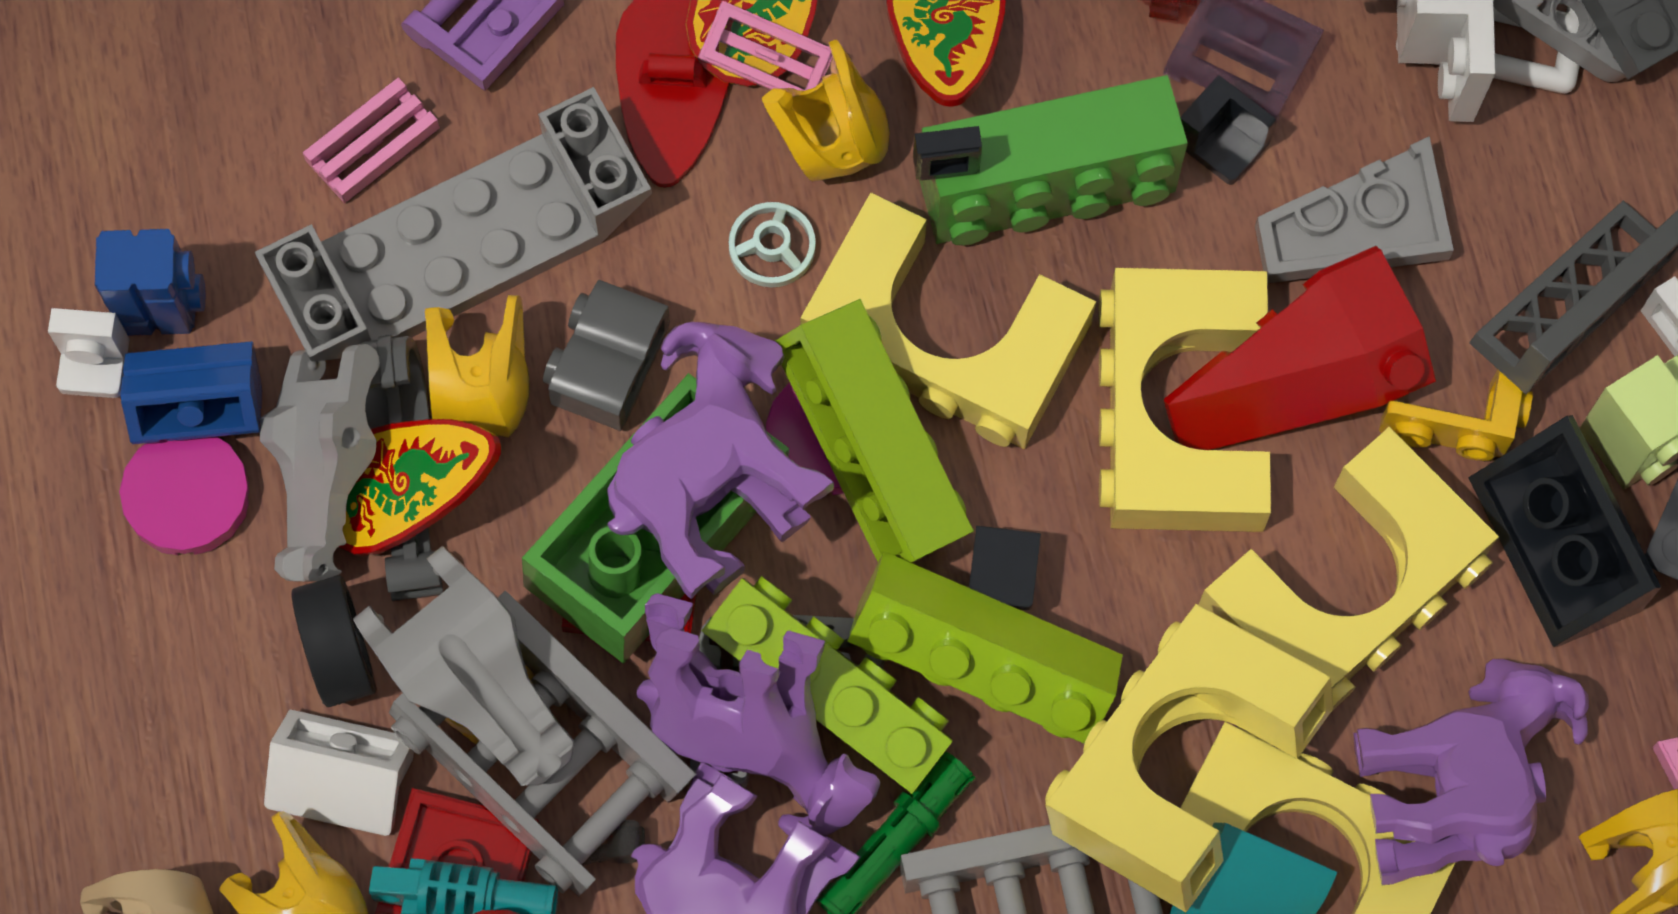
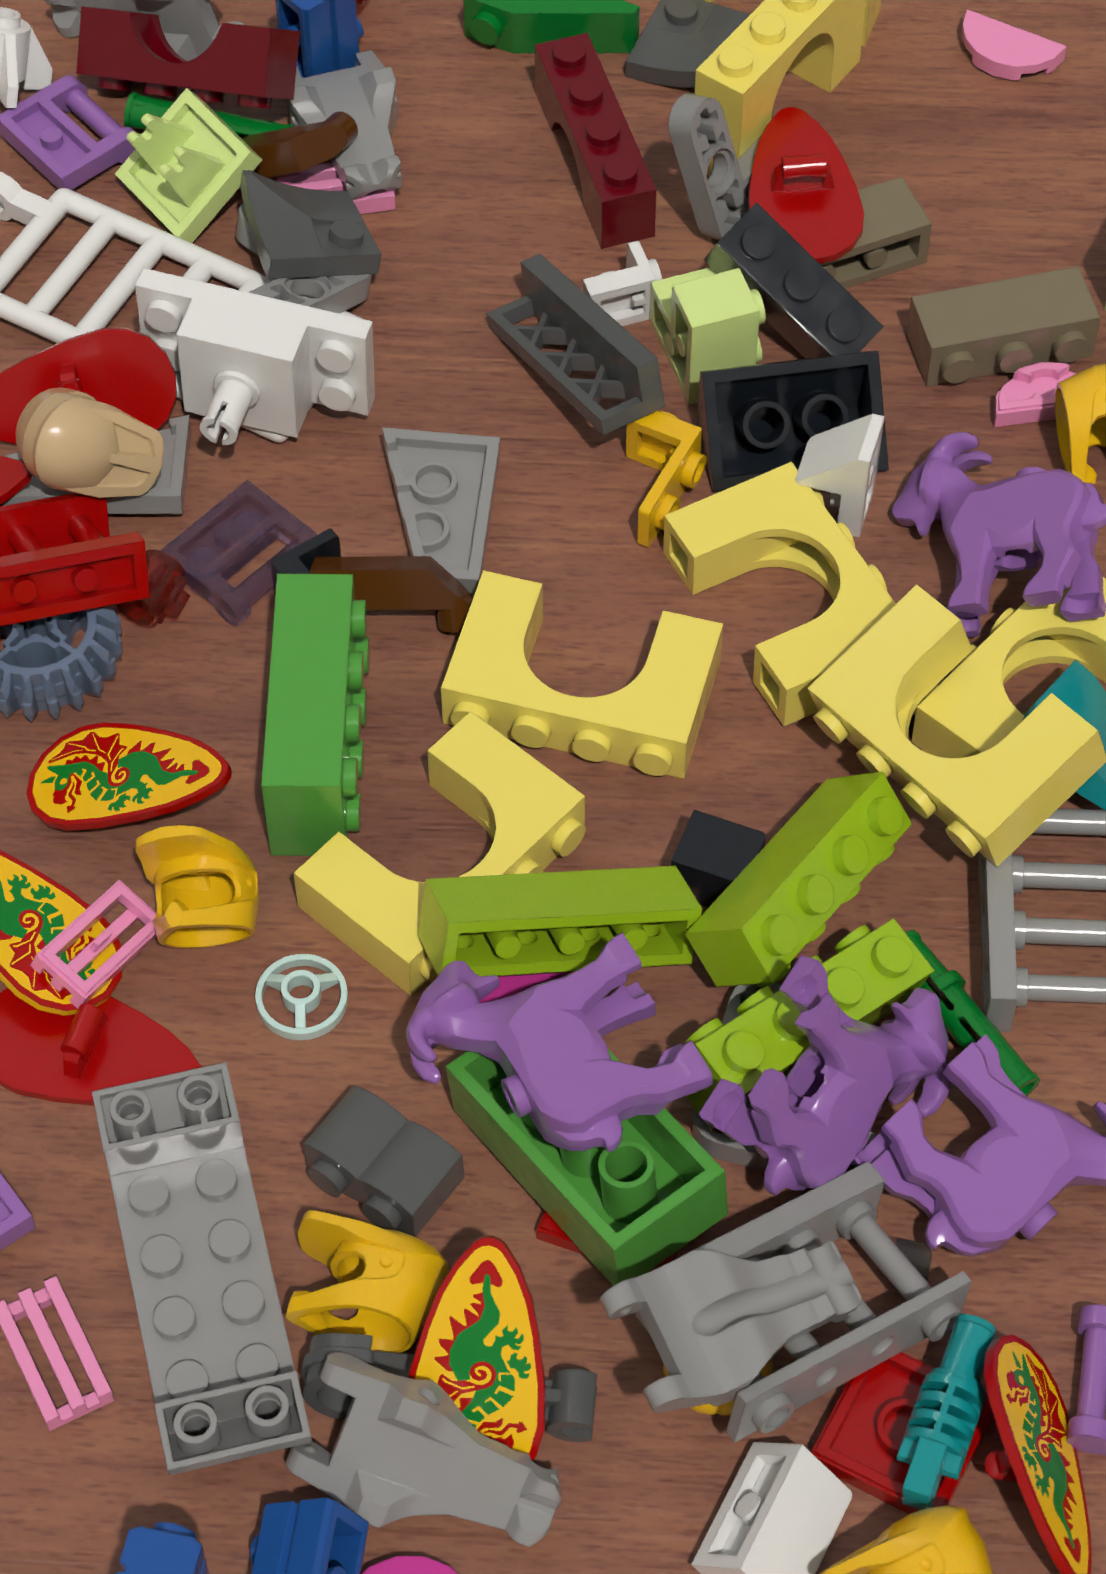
camera: 75 degrees left, 15 degrees down
(333, 641) = (639, 1483): black tyre -> none
(947, 153) = (307, 755): black tile -> none
(1234, 194) = (403, 585): none -> reddish brown piece
(1323, 357) = (586, 556): red wedge -> none
(1505, 592) = (845, 465): none -> white slope

